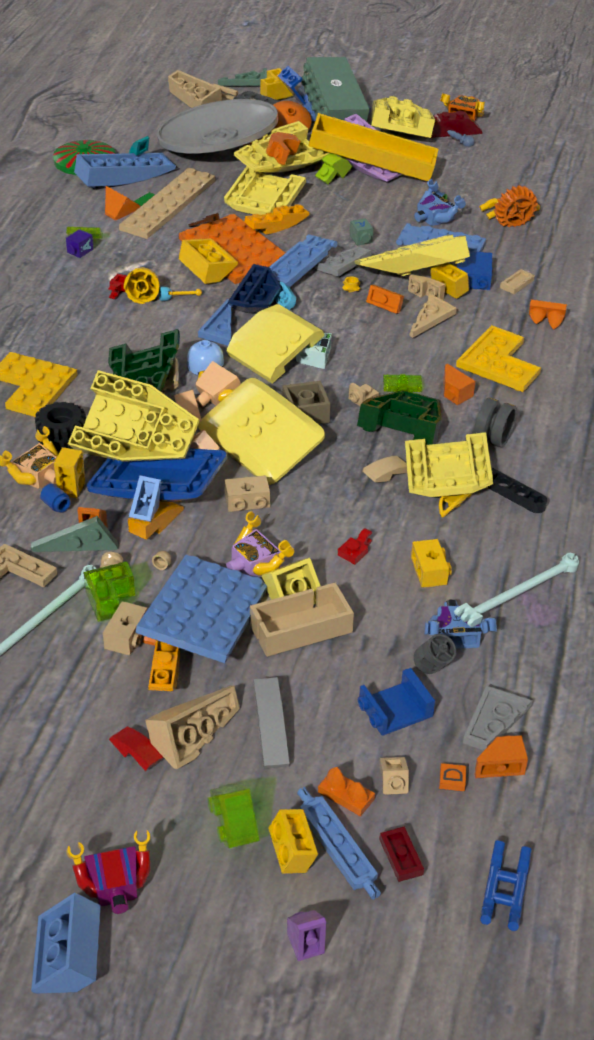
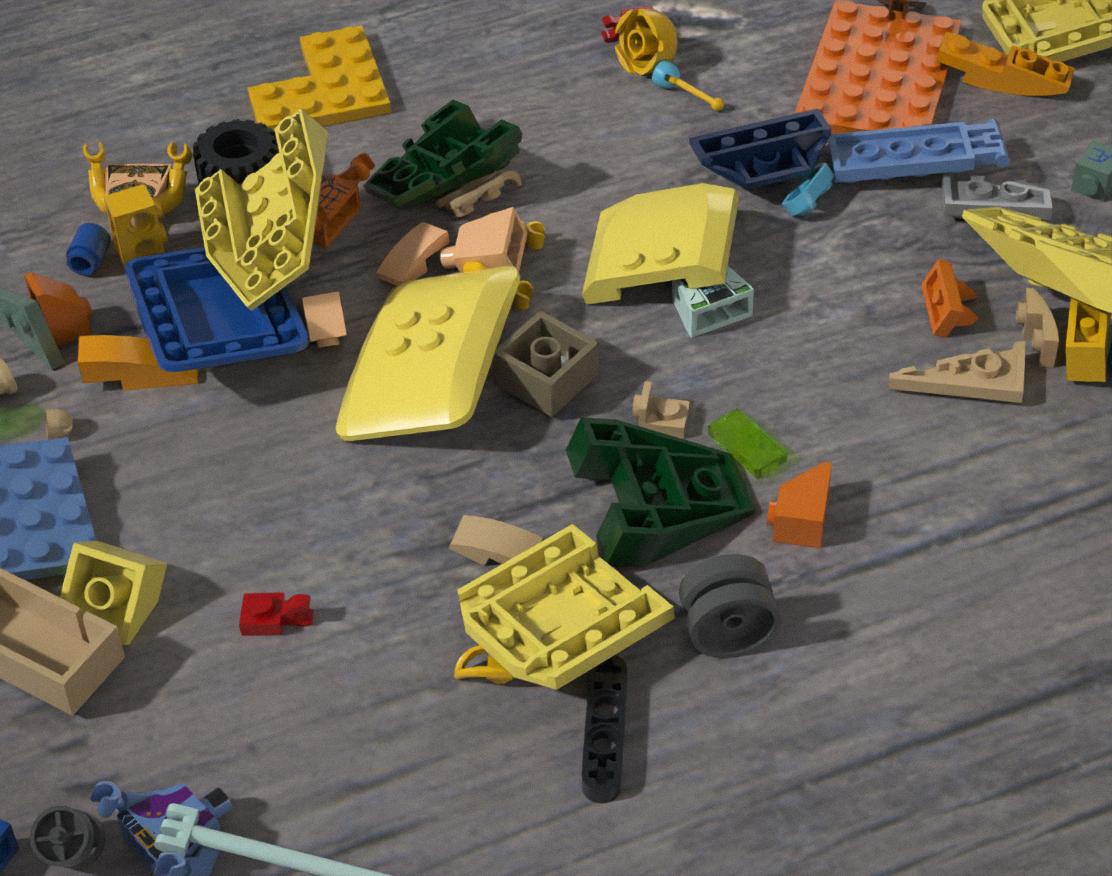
camera: 55 degrees right, 5 degrees up
(146, 499) = (115, 328): light blue slope -> none
(202, 354) = (556, 201): light blue cylinder -> none
(206, 259) = (791, 61): yellow slope -> none
(218, 326) = (650, 169): medium blue wing -> none
(247, 493) = (276, 424): tan brick -> none
(255, 553) = (146, 505): torso -> none
(351, 284) = (941, 241): yellow plate -> none
(430, 563) = (303, 719): yellow brick -> none
(492, 359) = (932, 513): yellow plate -> none

